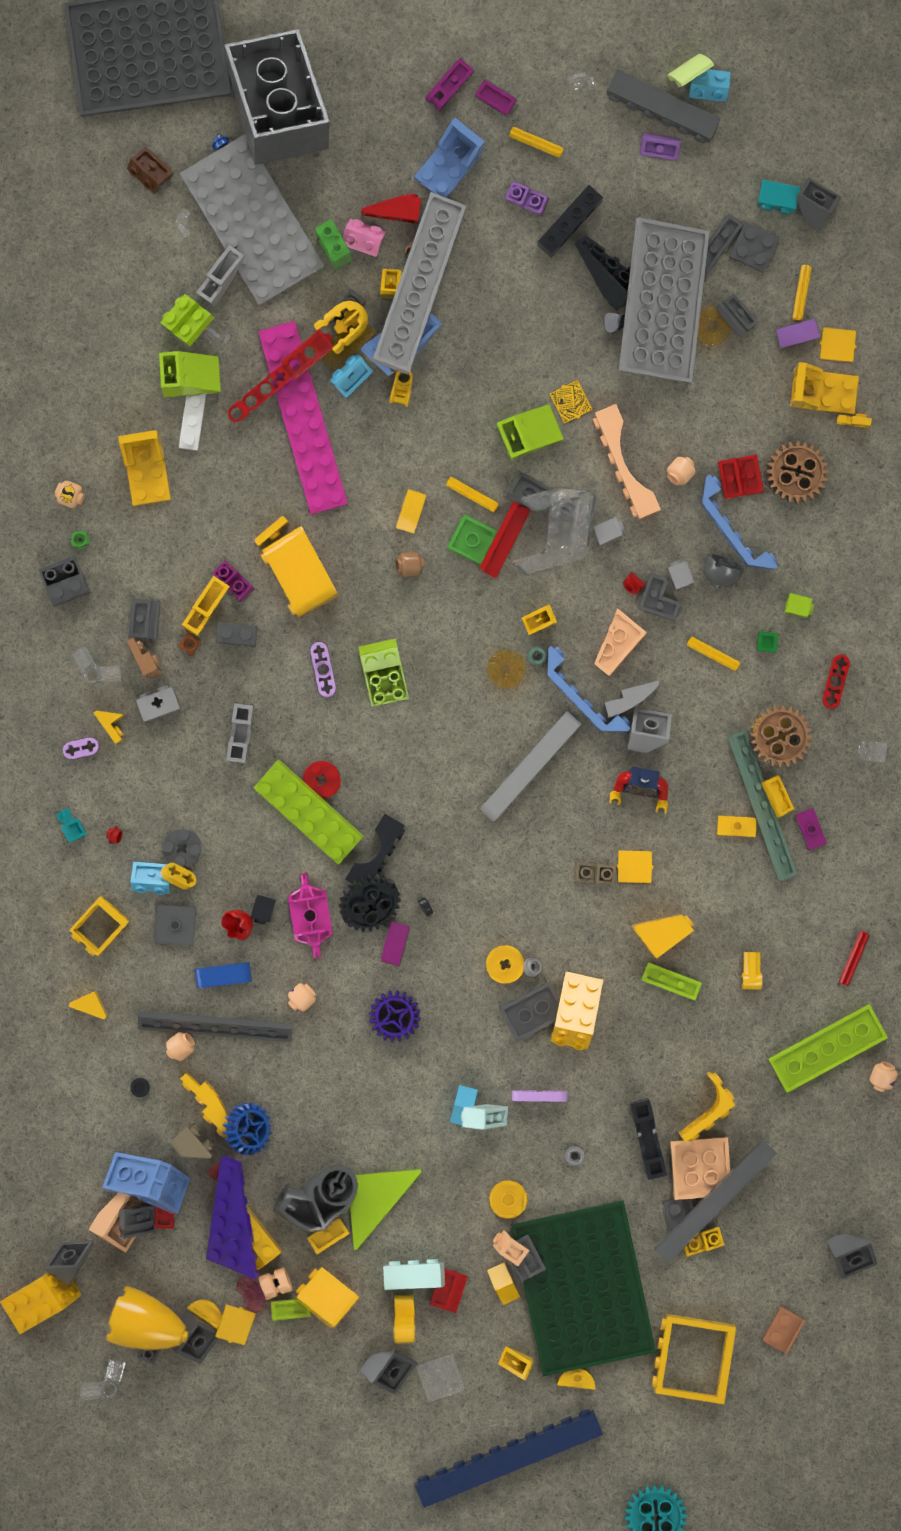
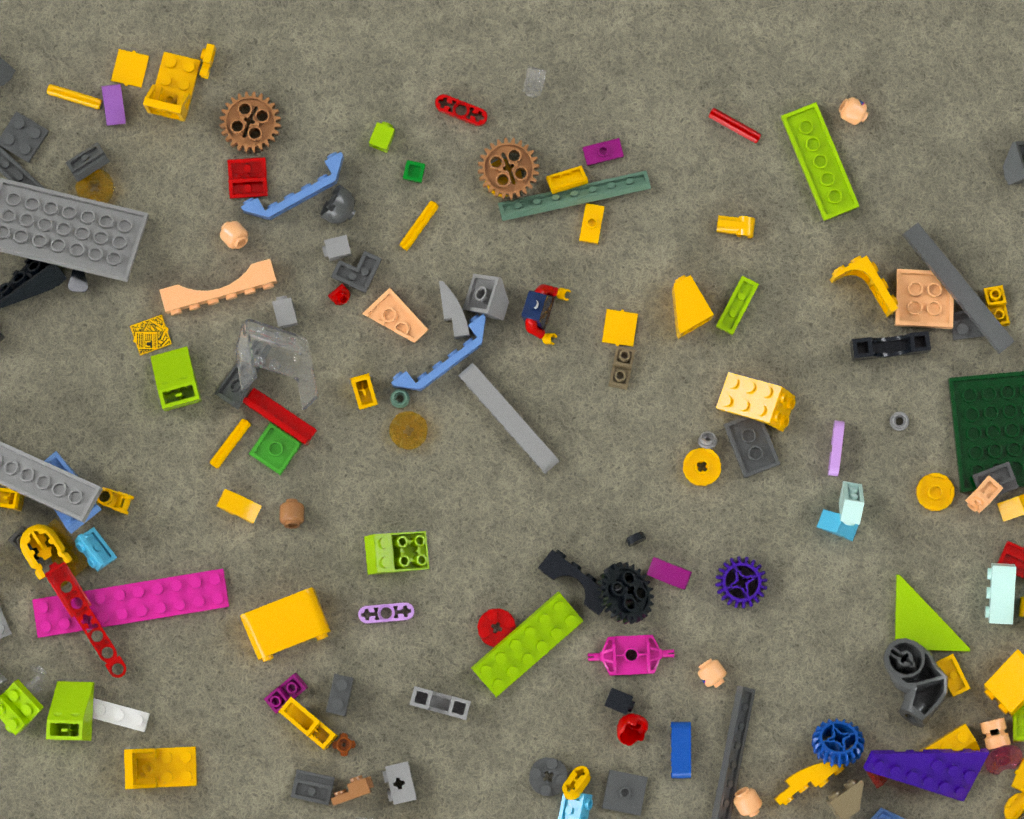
camera: 85 degrees left, 5 degrees down
(271, 532) = (242, 647): yellow plate -> none

